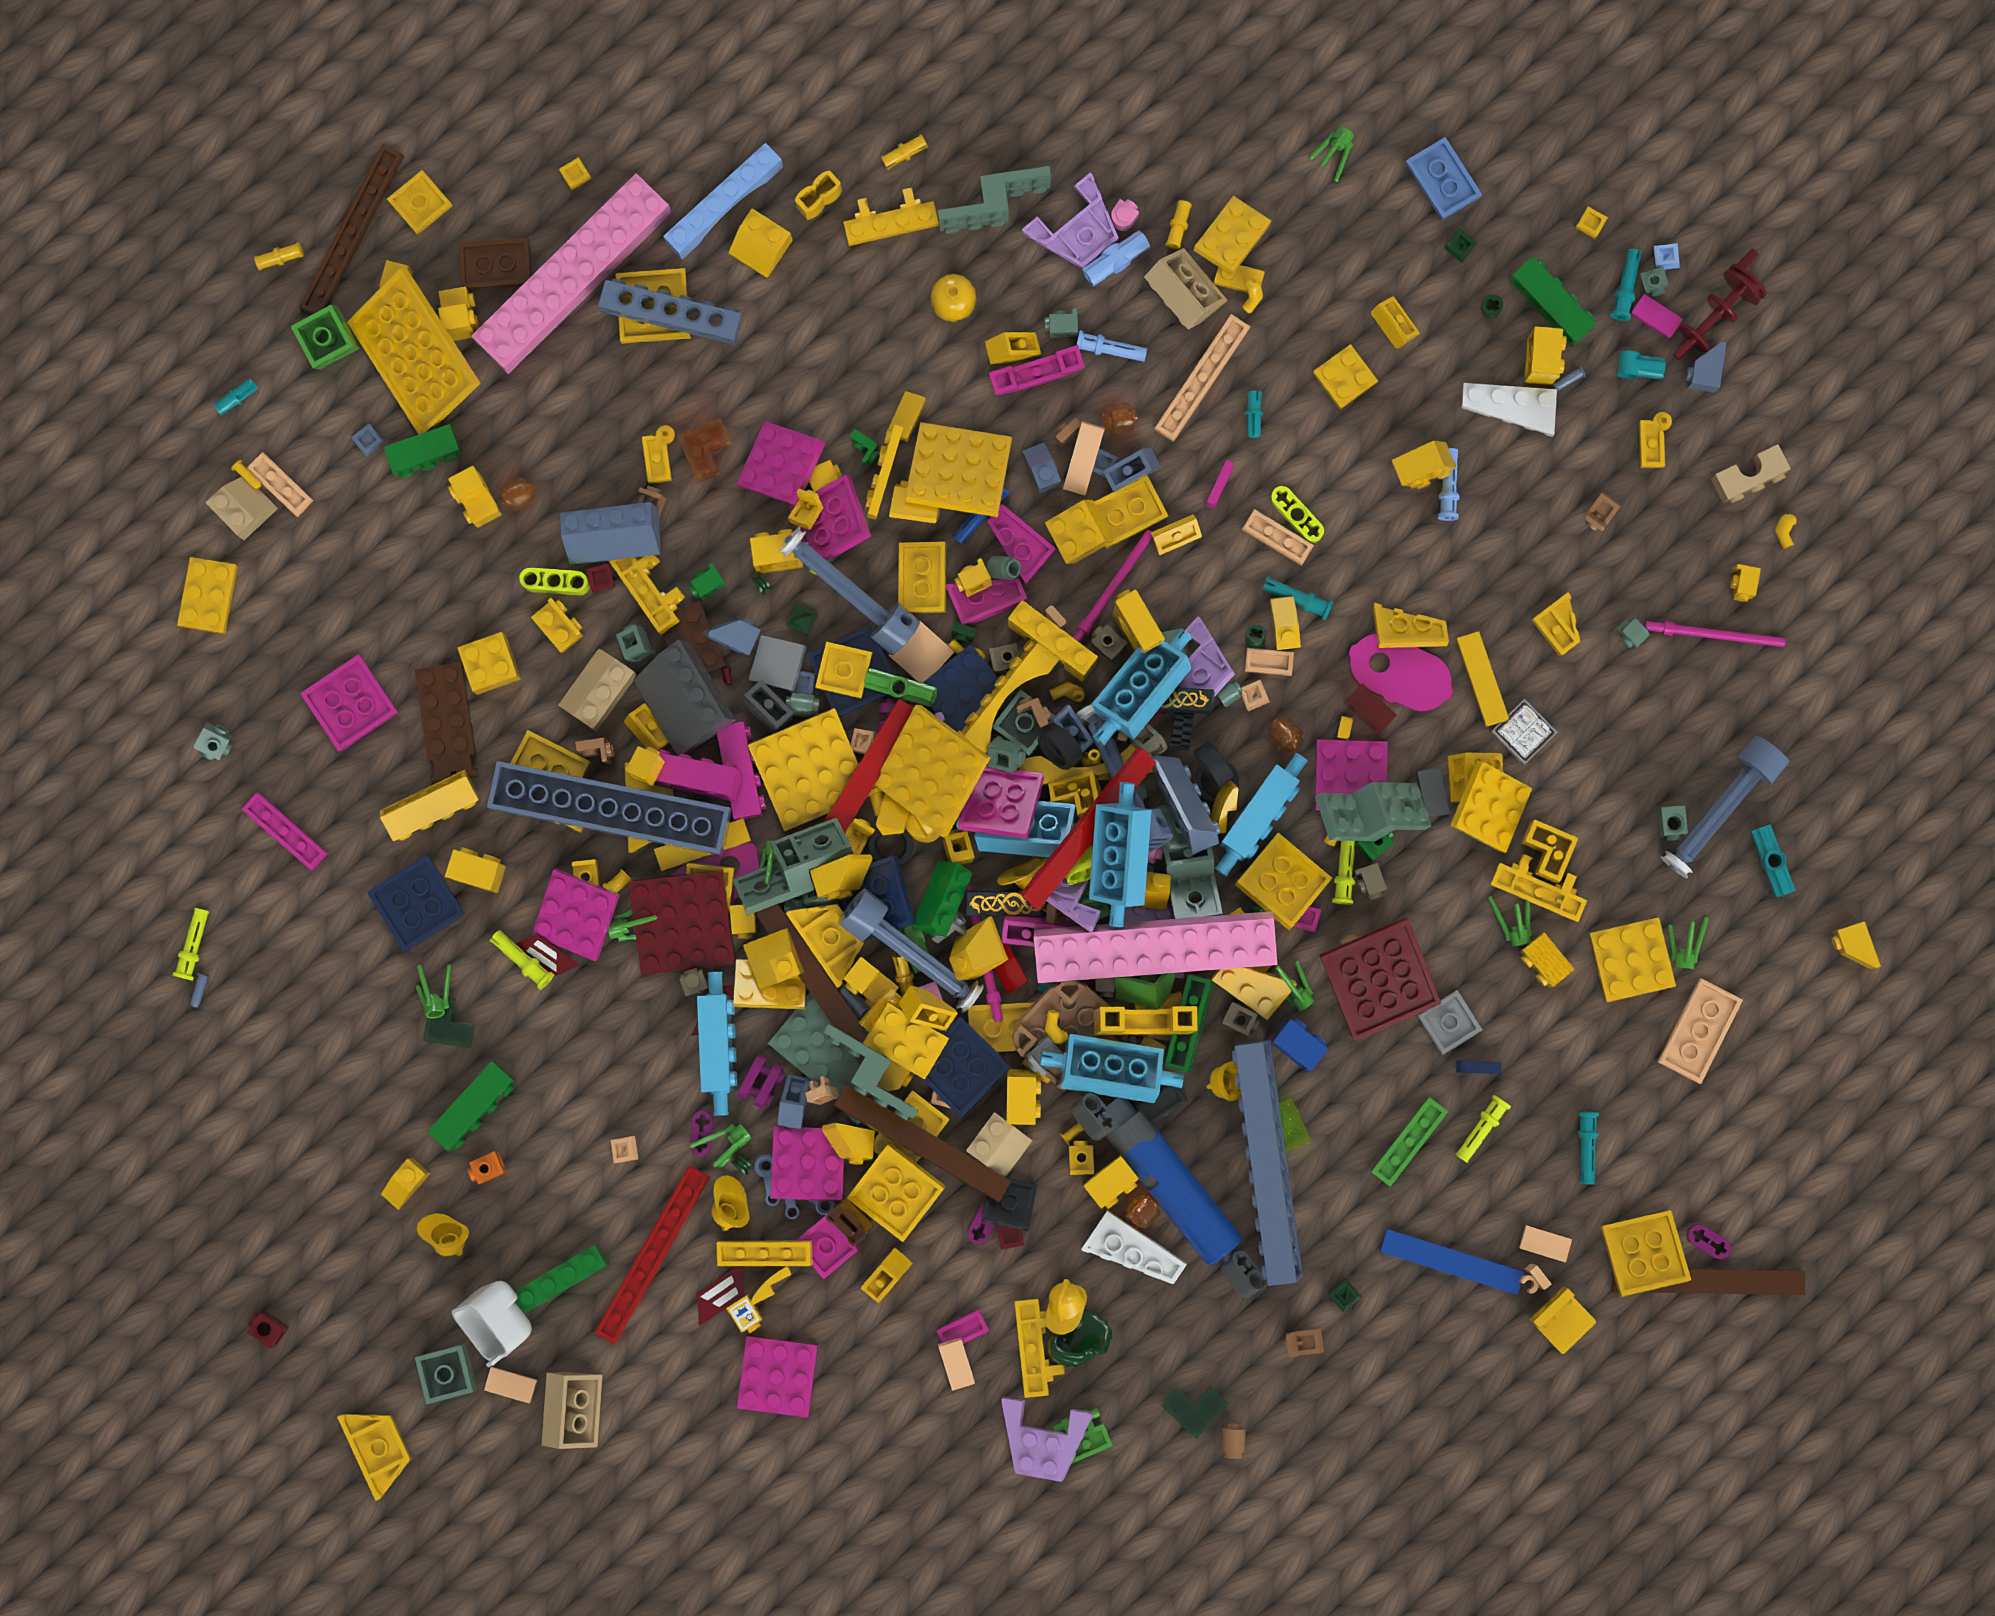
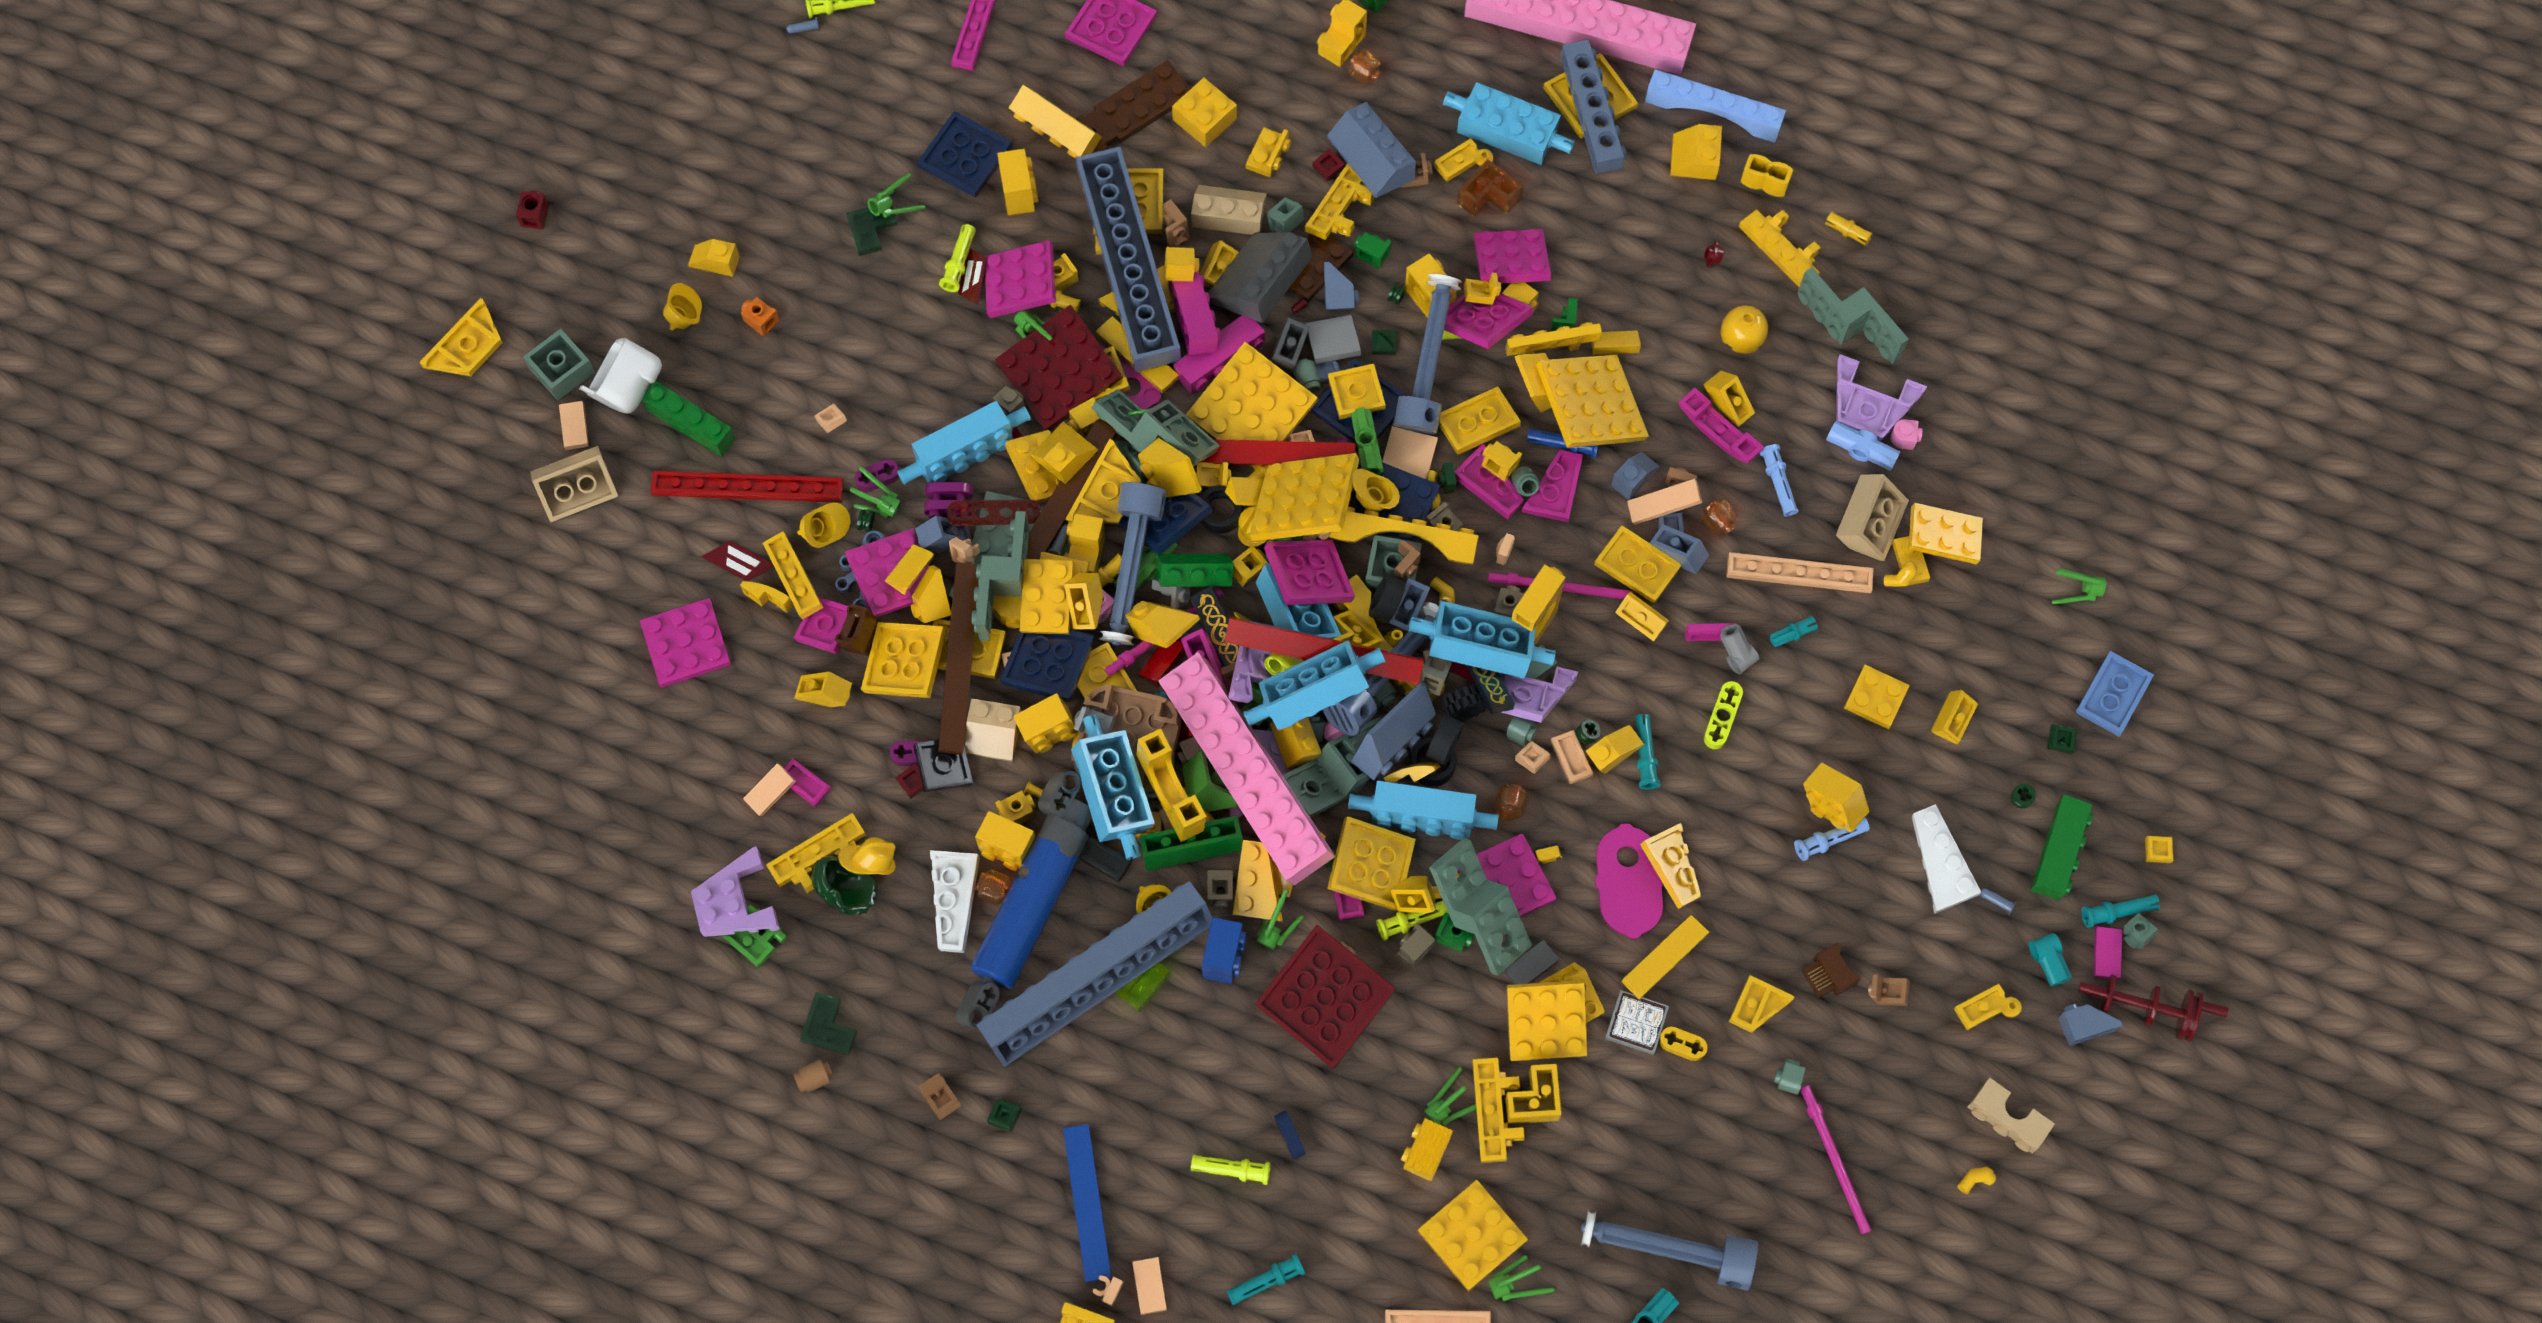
camera: 60 degrees right, 15 degrees down
(471, 1106) = (808, 278): green brick -> none
(543, 579) = (1302, 121): neon yellow beam -> none
(645, 394) = (1508, 123): none -> medium azure brick
(745, 1314) = (727, 586): brick -> none
(796, 1047) = (993, 507): none -> clear red beam
(815, 1147) = (909, 568): none -> yellow slope
(868, 284) = (1713, 254): none -> dark red plate
(954, 704) = (1374, 490): none -> yellow piece
(1005, 755) = (1355, 564): sand green brick -> none
(1031, 624) = (1481, 551): yellow arch -> none
(1052, 1030) = (1123, 716): yellow arm -> none
(1062, 324) = (1776, 428): sand green brick -> none
(1079, 531) = (1595, 528): yellow brick -> none
(1178, 224) = (1926, 484): yellow pin -> none
(1250, 470) = (1740, 652): none -> light grey piece
(1277, 537) = (1692, 709): light nougat tile -> none
(1331, 859) = (1414, 895): none -> yellow slope
(1370, 709) = (1577, 865): clear red brick -> none
(1409, 1141) = (1183, 1104): bright green plate -> none
(1449, 1022) = (1319, 1088): light grey tile -> none
(1544, 355) = (2004, 860): yellow brick -> none
(1556, 700) = (1680, 1049): none -> yellow beam
(1562, 552) = (1830, 973): none -> reddish brown piece
(1667, 256) = (2171, 934): light blue tile -> none
(1679, 815) = (1637, 1200): sand green brick -> none
(1744, 582) = (1902, 1161): yellow brick -> none

